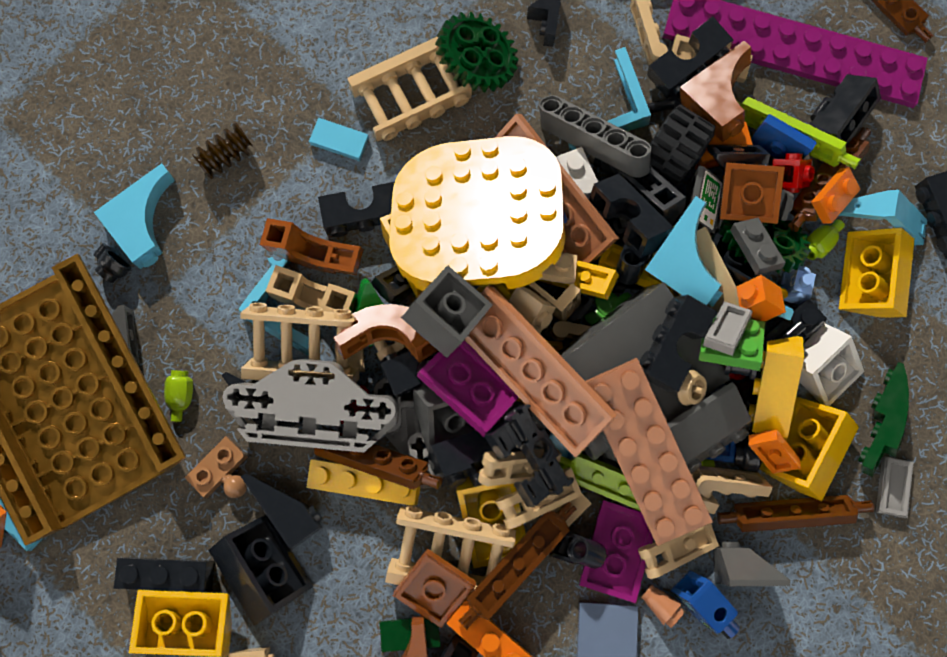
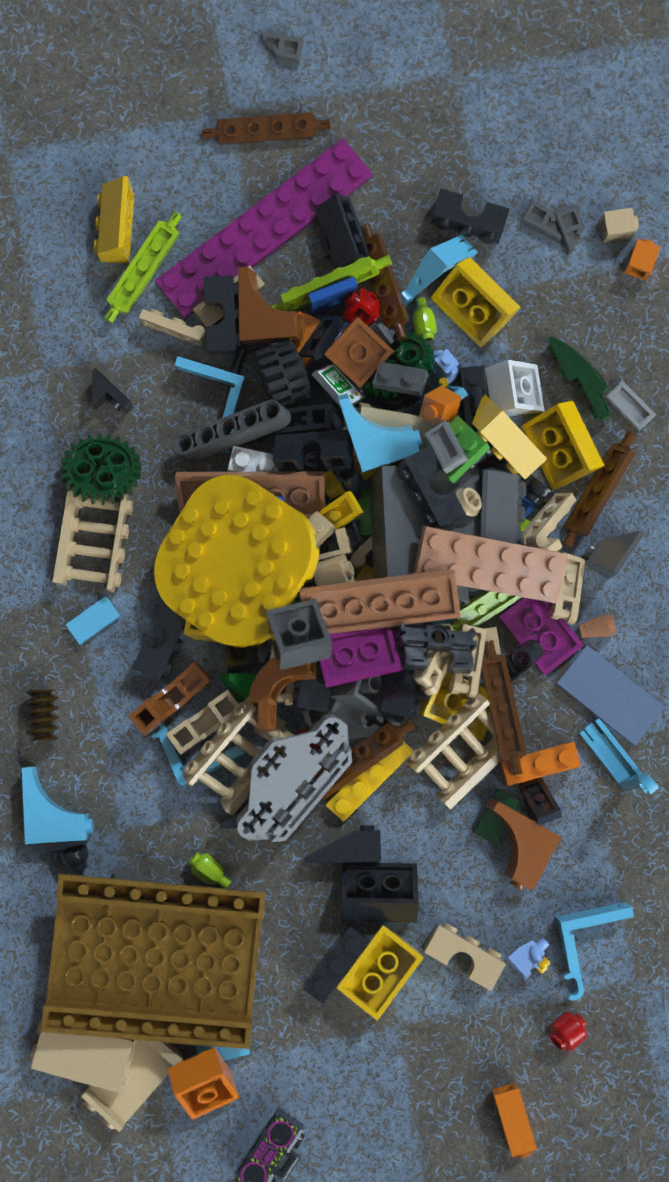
camera: 55 degrees left, 5 degrees up
(218, 469) = (284, 876): medium nougat plate -> none
(434, 588) = (478, 777): dark orange tile -> none
(707, 604) = (617, 596): blue torso -> none
(774, 451) = (549, 474): orange plate -> none
(836, 195) = (401, 291): orange plate -> none

